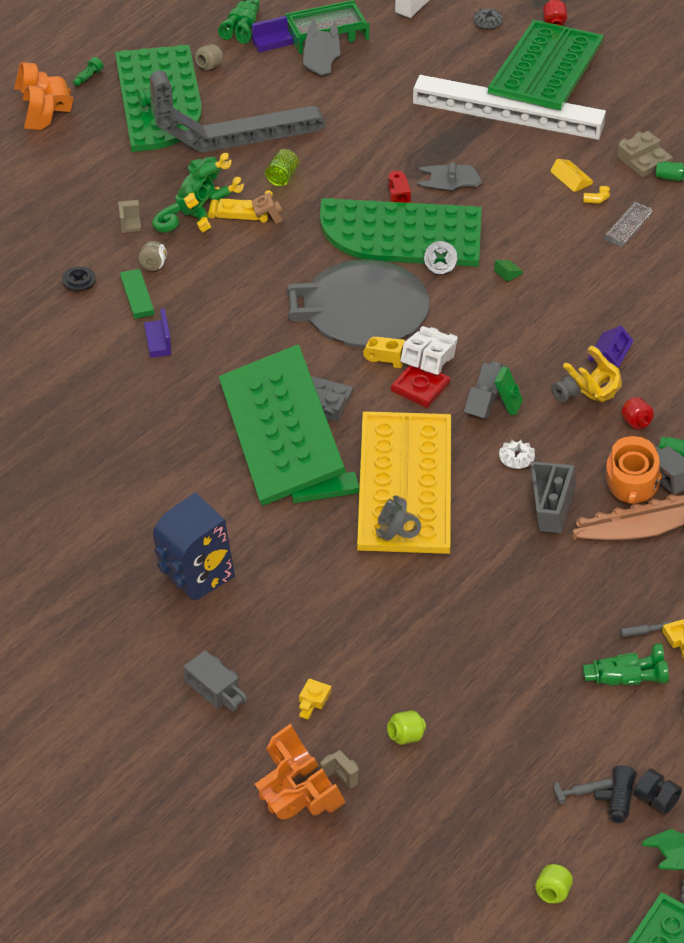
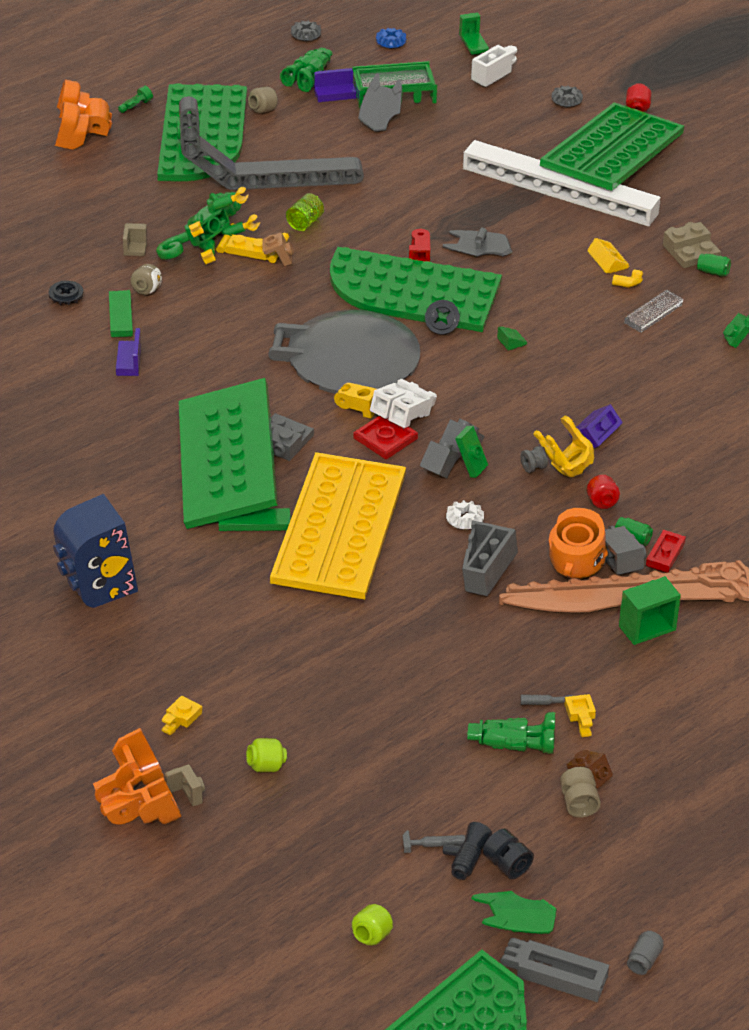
camera: 10 degrees right, 5 degrees down
(214, 681) = (83, 683): dark grey brick -> none
(393, 518) = (311, 555): dark grey tile -> none

